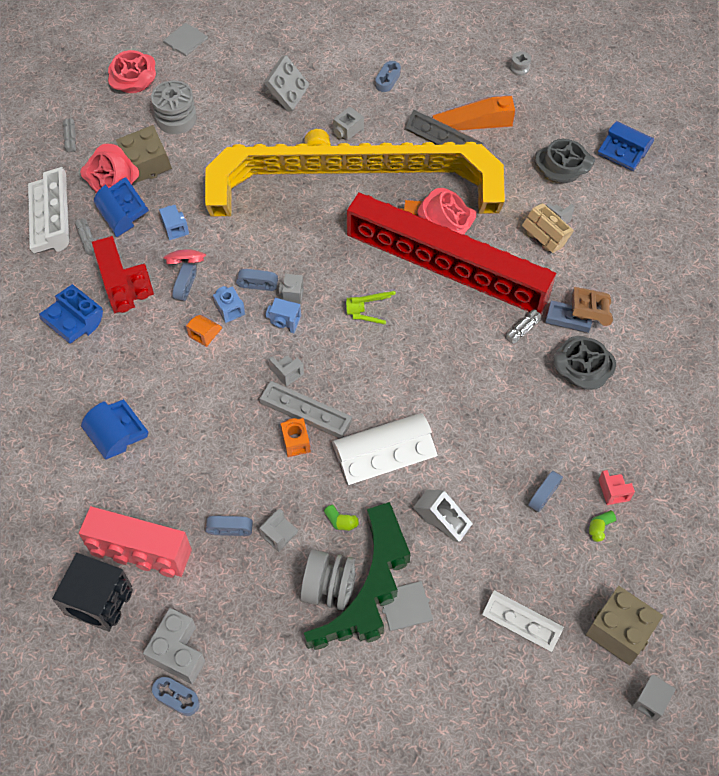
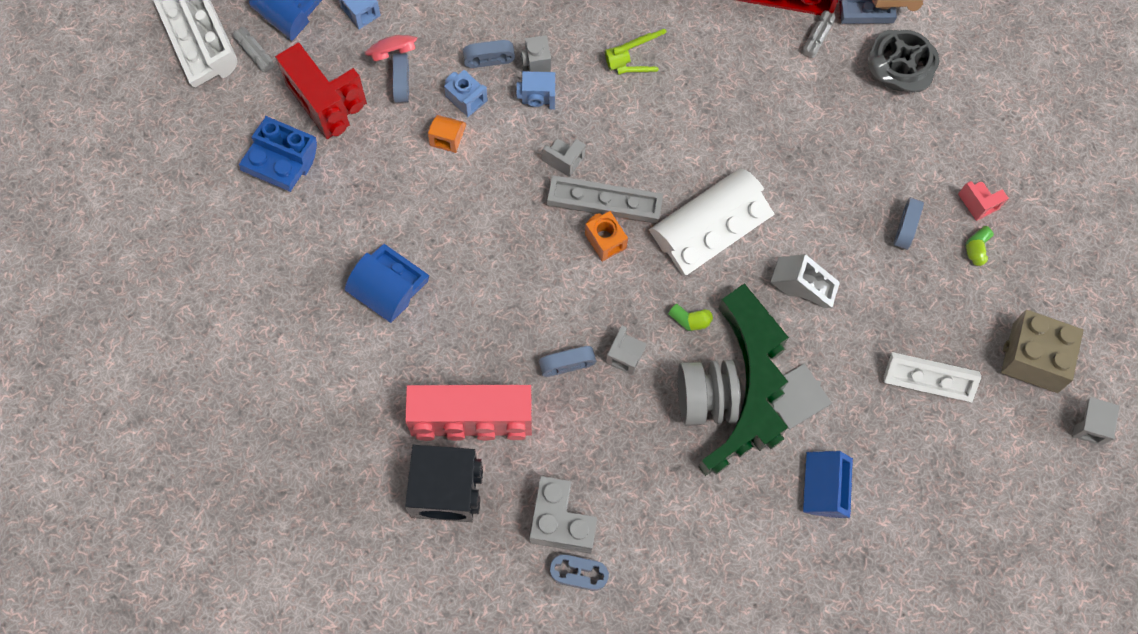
camera: 20 degrees left, 10 degrees up
(405, 684) = (828, 484): none -> blue brick

